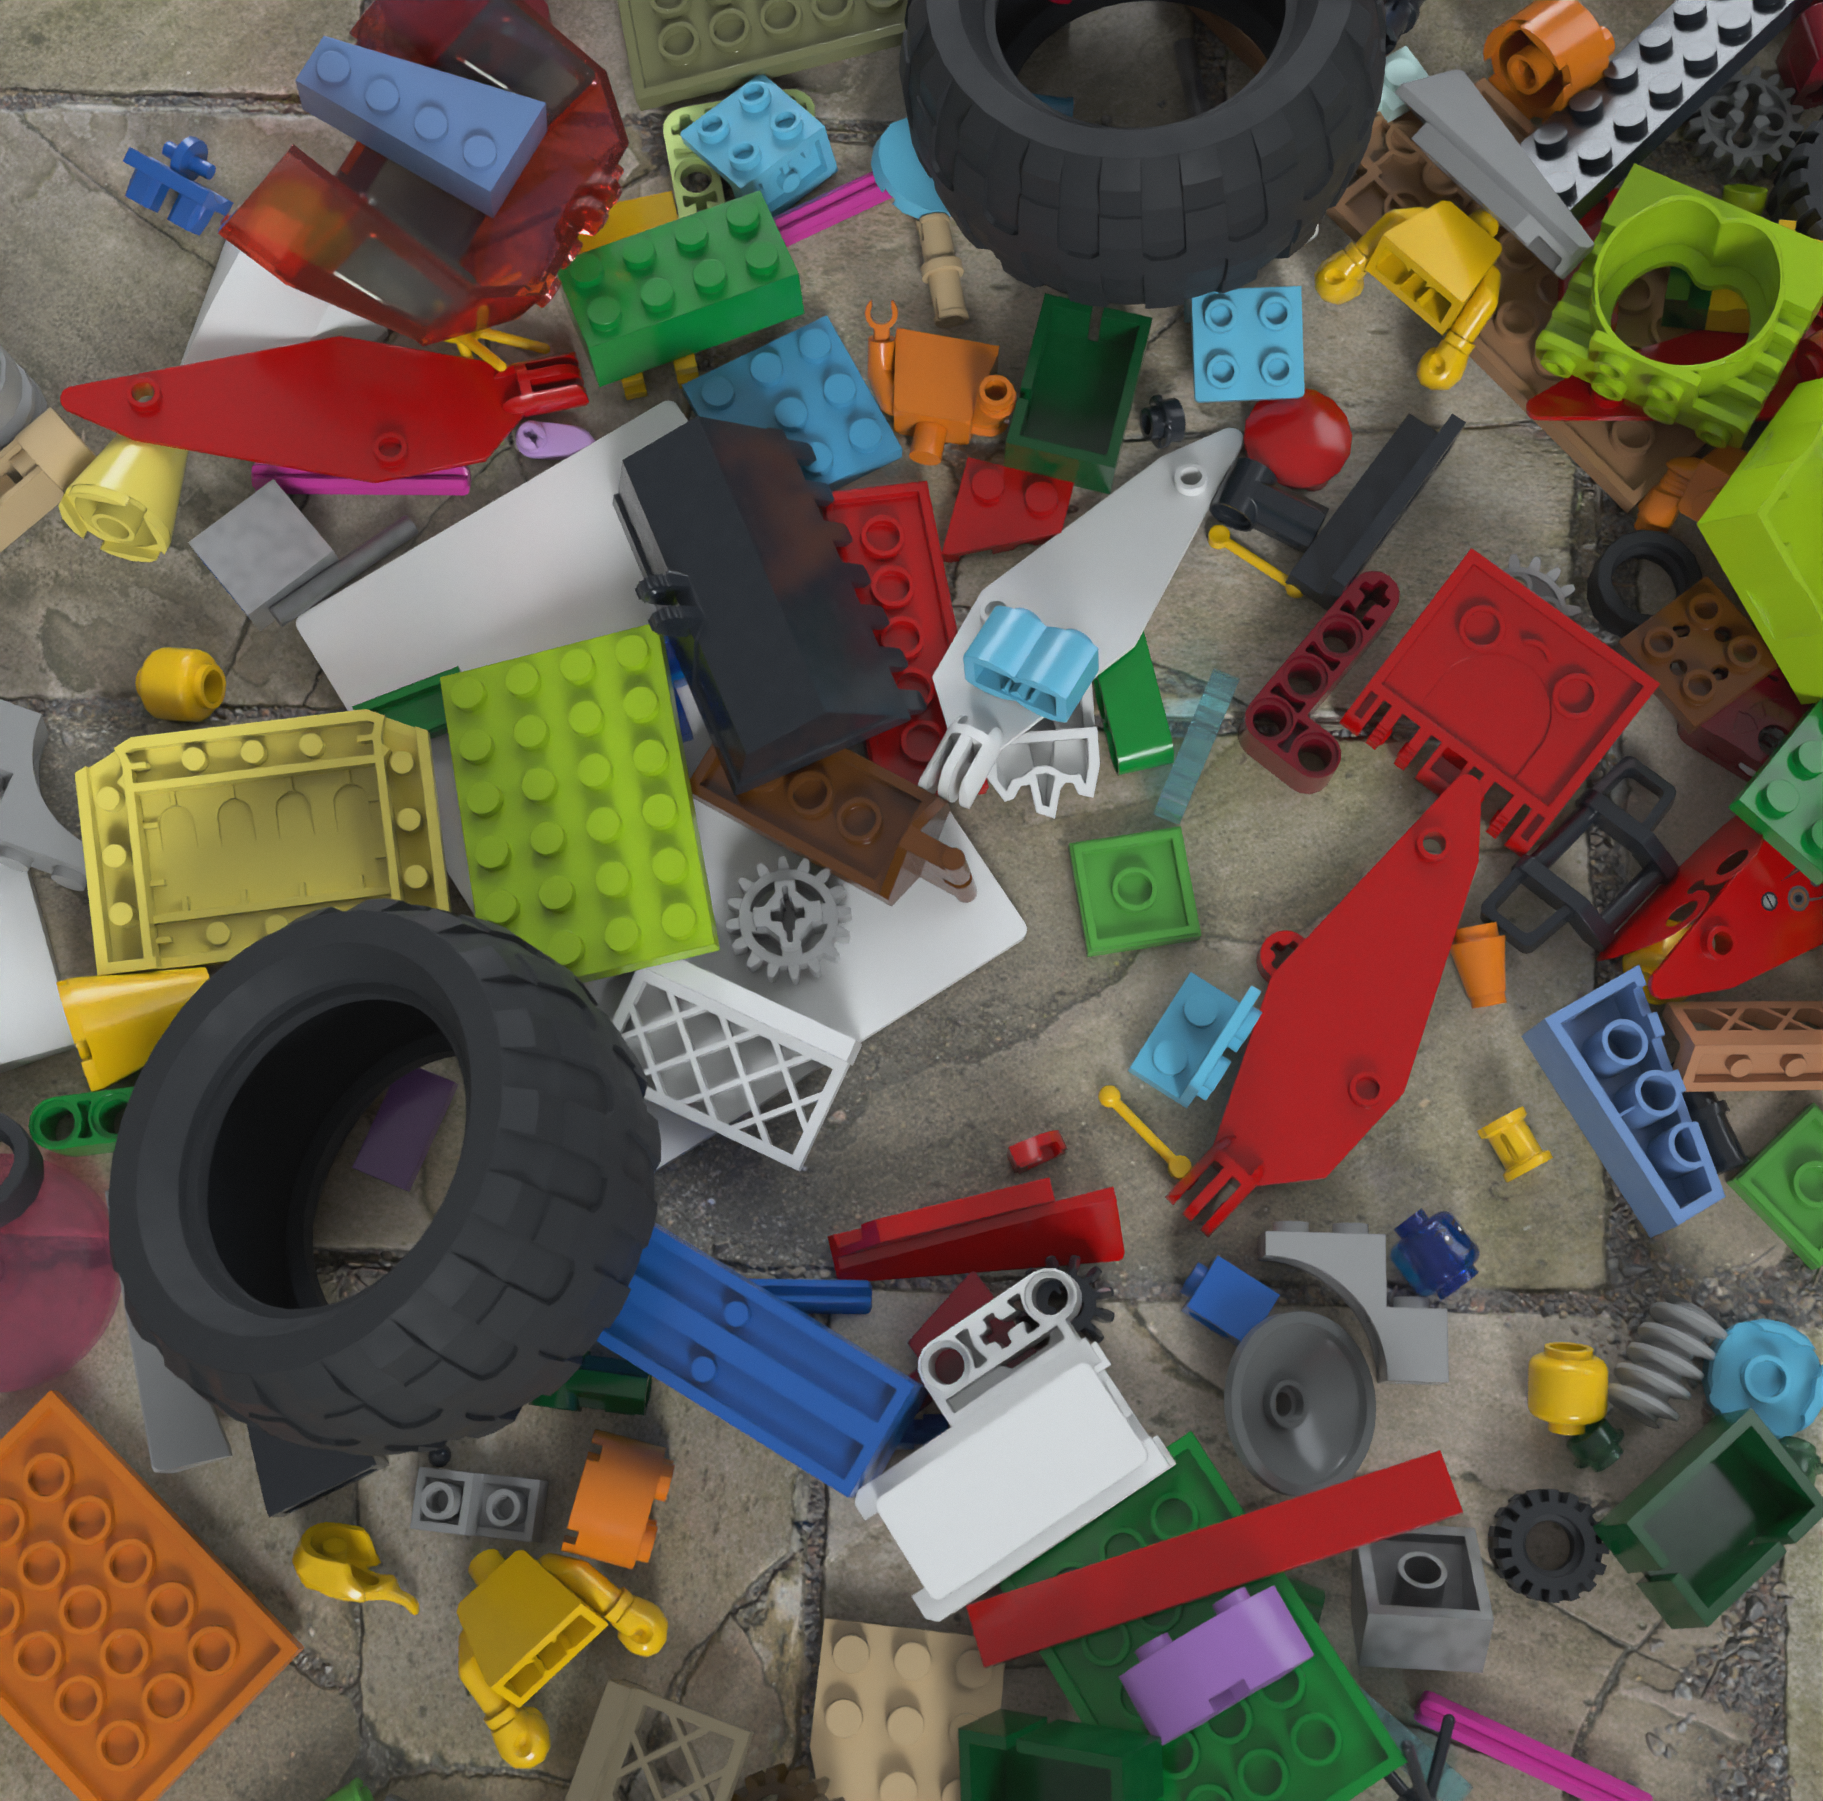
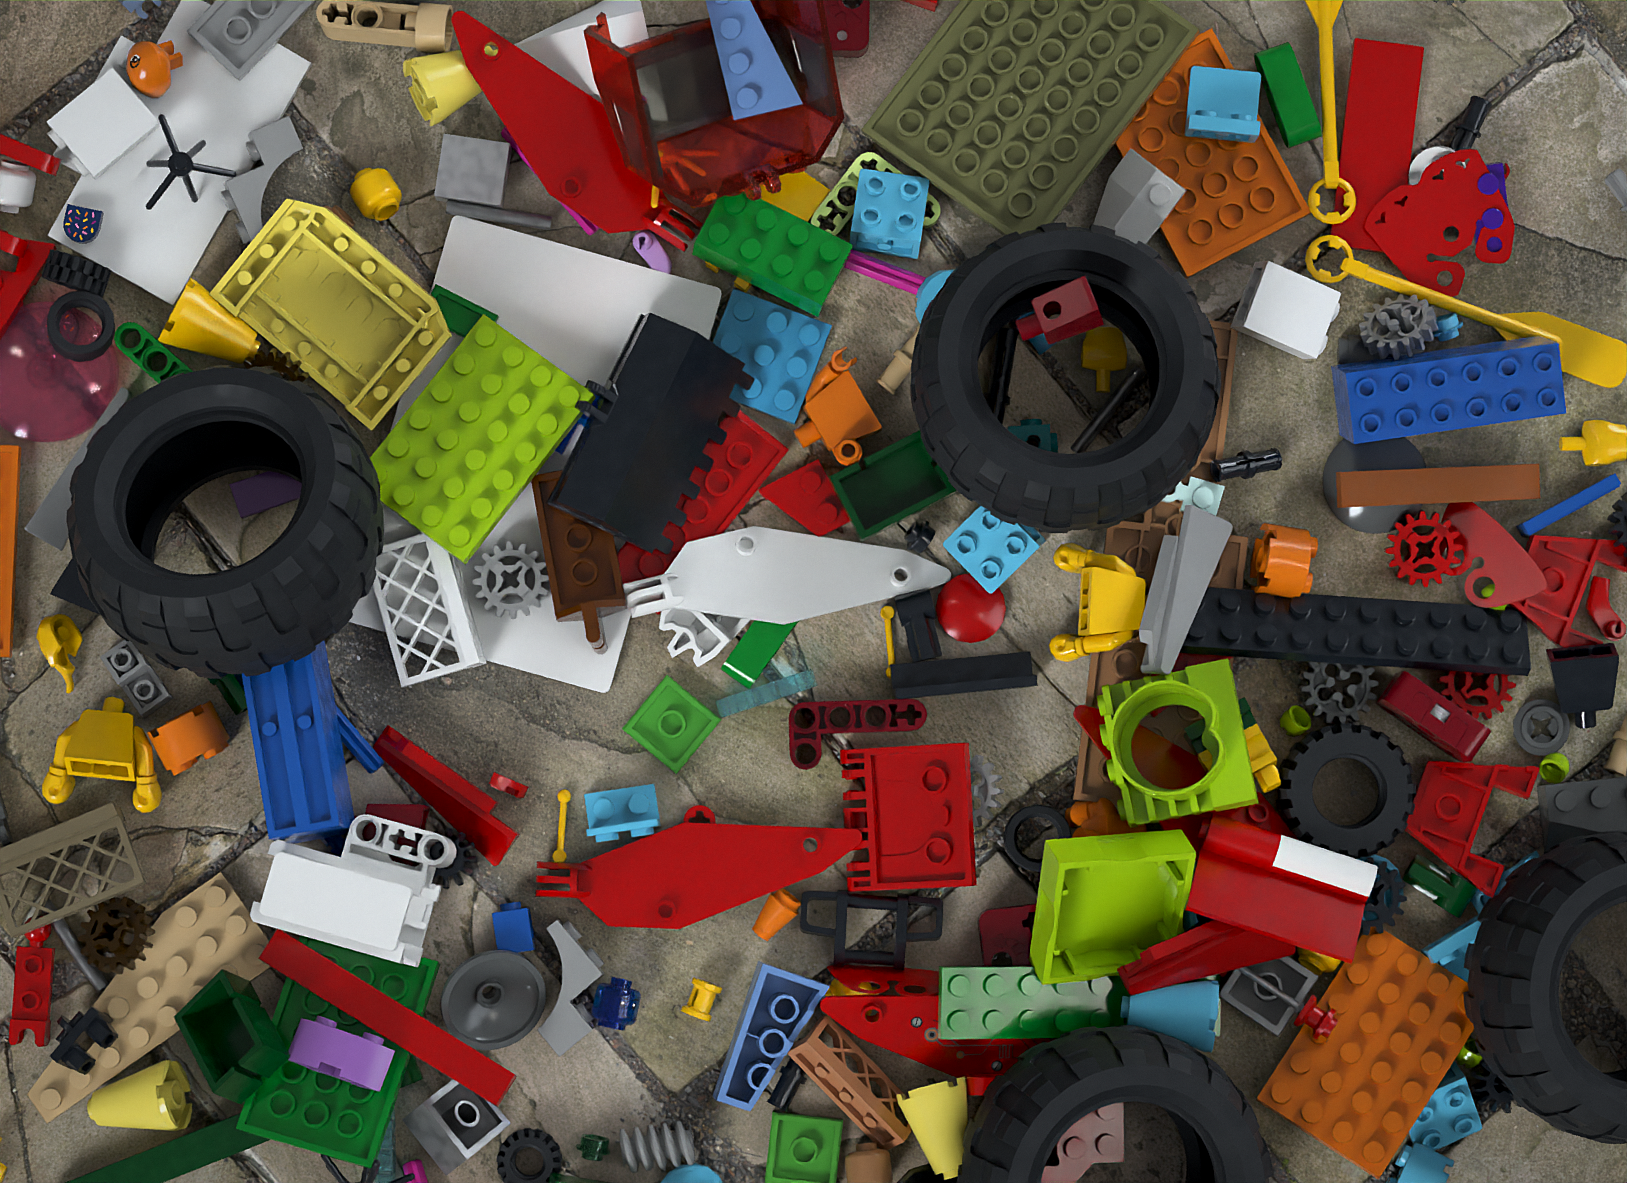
camera: 45 degrees right, 10 degrees up
(1031, 663) = (727, 585): medium azure brick -> none
(1132, 56) = (1104, 352): none -> yellow piece
(1567, 1387) = (607, 1112): yellow head -> none
(1687, 663) = (989, 906): reddish brown plate -> none

